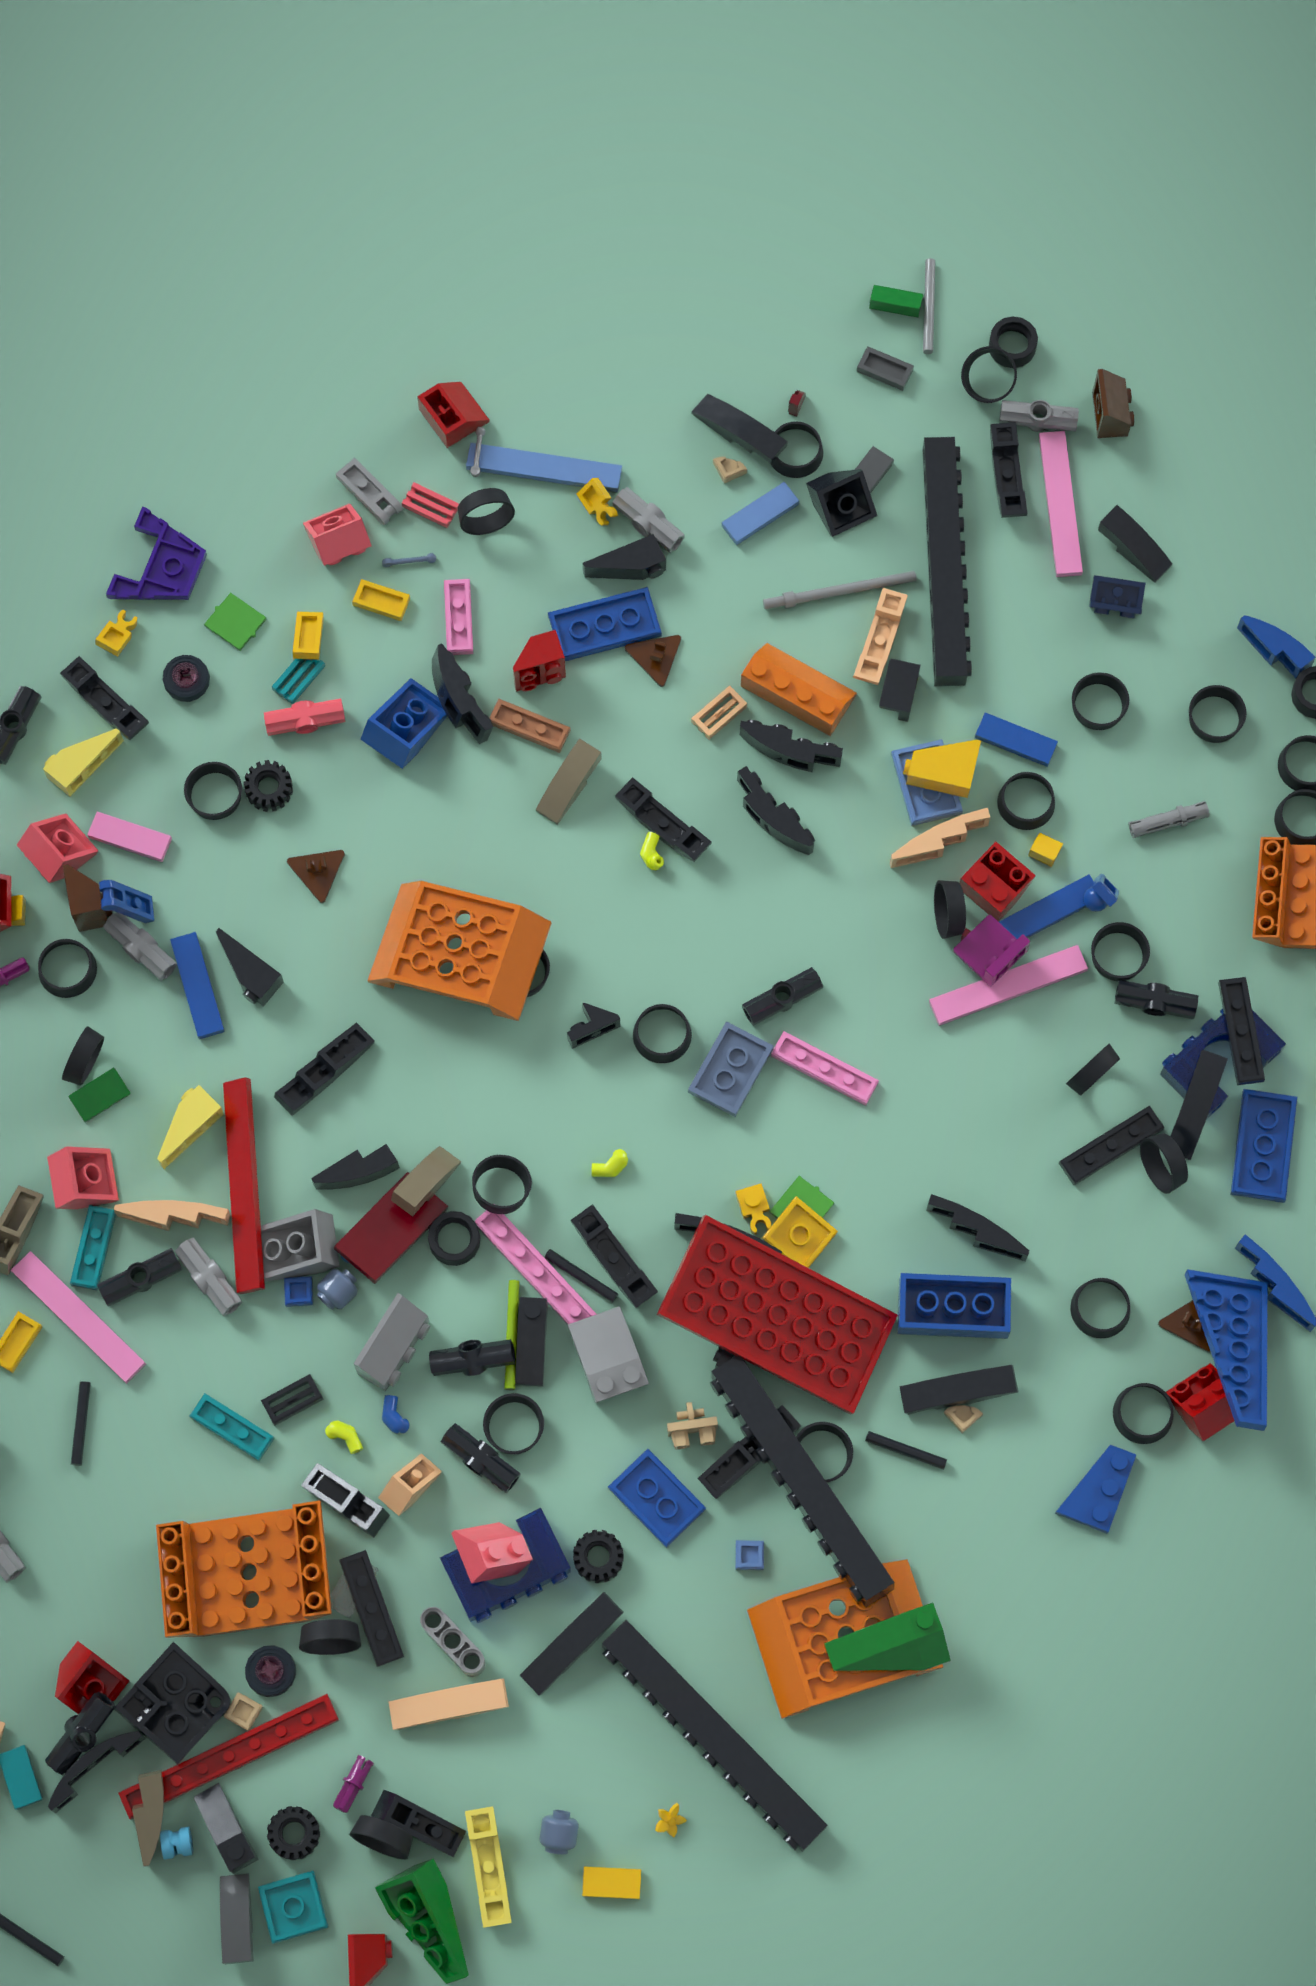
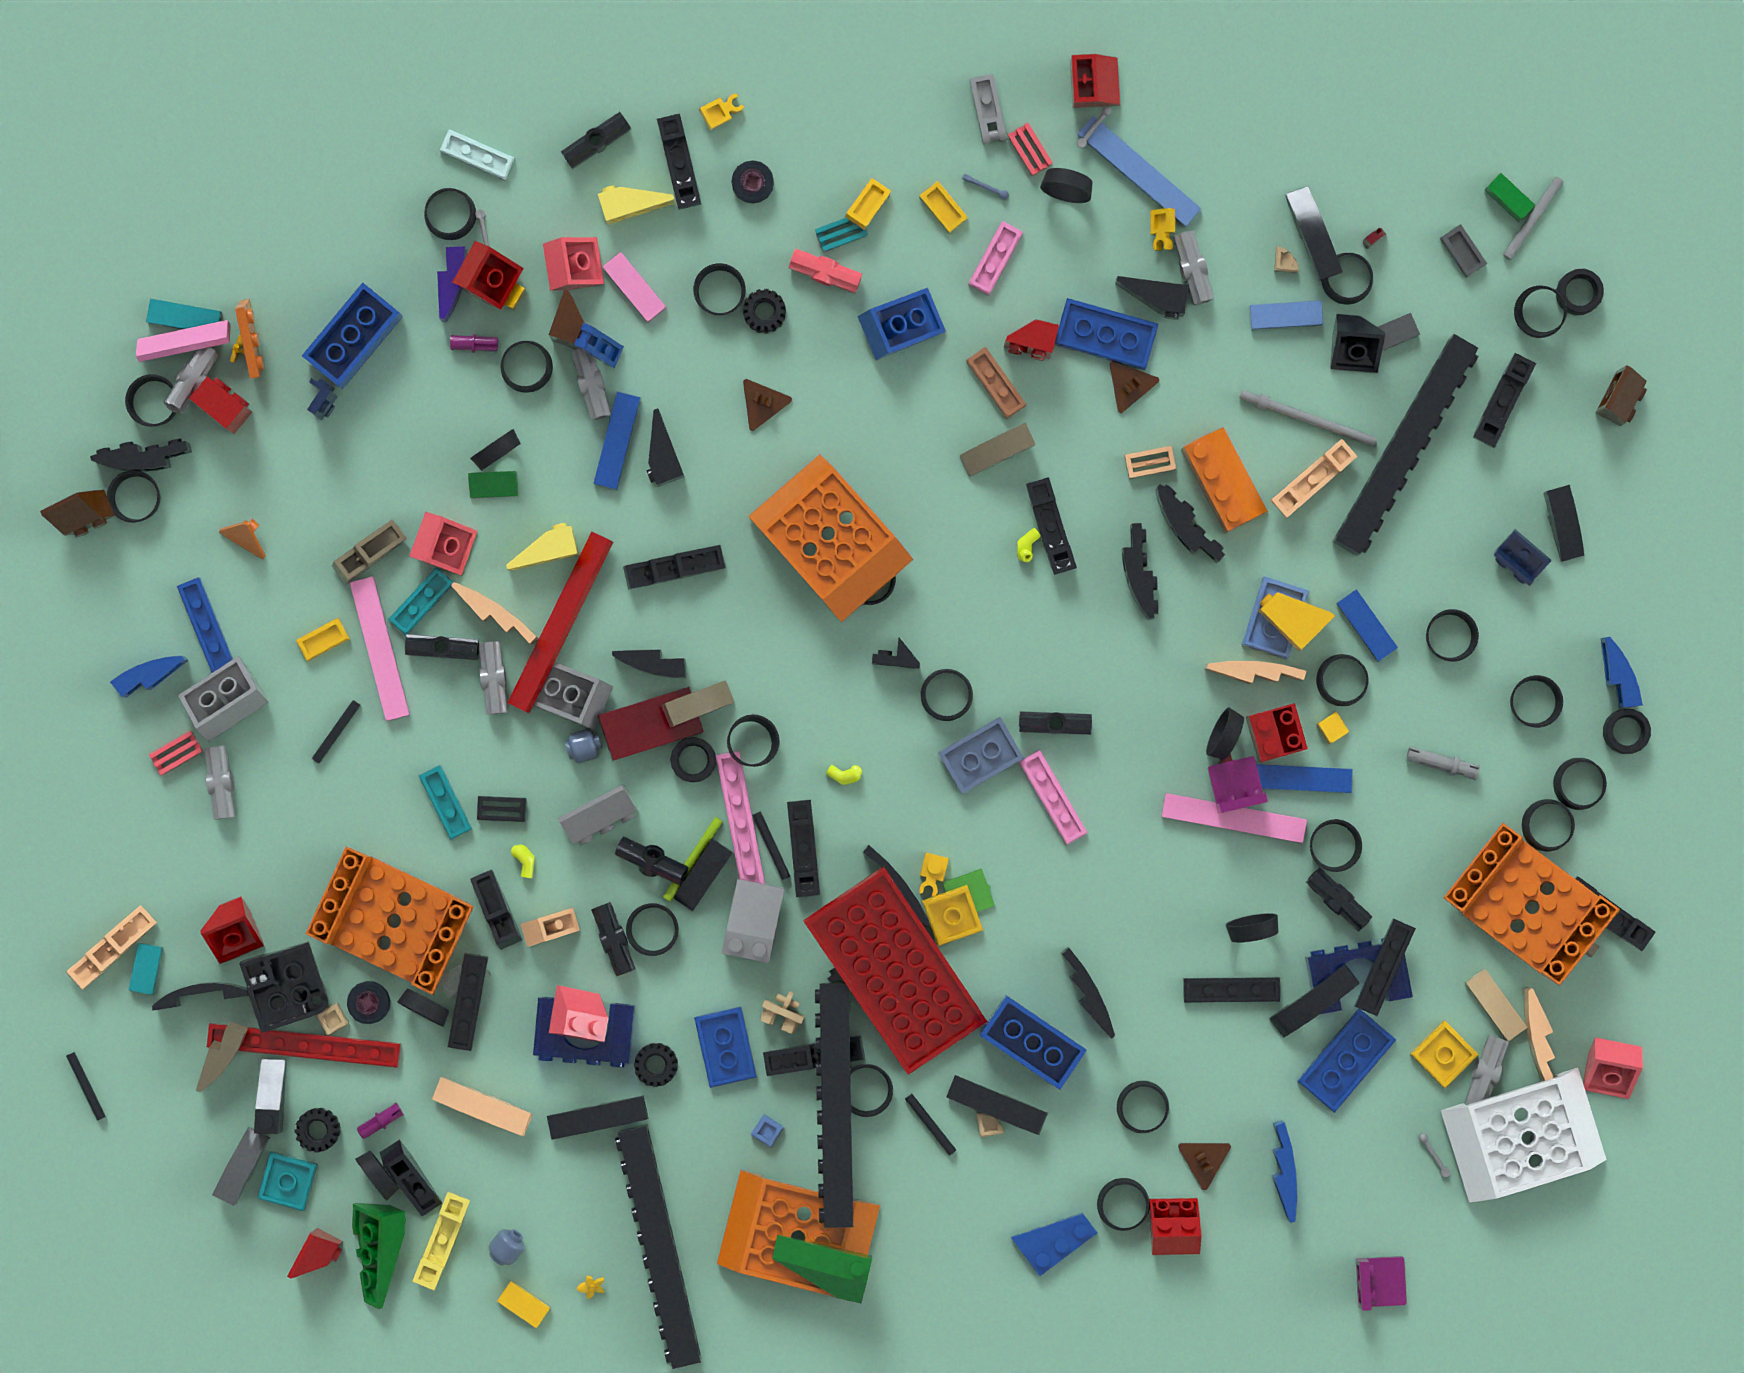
camera: 25 degrees right, 15 degrees up
(80, 1733) = (205, 966): black piece -> none
(170, 569) = (795, 79): dark purple wing -> none
(176, 1843) = (230, 1086): medium azure wheel -> none
(235, 621) = (819, 155): bright green piece -> none
(298, 1291) = (554, 729): blue tile -> none
(337, 534) = (941, 131): coral slope -> none
(391, 1417) = (566, 867): blue arm -> none
(444, 1630) = (520, 1072): light grey beam -> none
(452, 690) = (953, 316): black slope -> none
(900, 687) = (1301, 530): black panel -> none
(1054, 416) = (1571, 378): light grey piece -> none
(1060, 504) = (1528, 451): bright pink tile -> none
(1100, 894) = (1350, 793): blue tile -> none
(1154, 1164) = (1259, 1031): black tyre -> none
(1236, 1331) = (1229, 1190): blue wing -> none

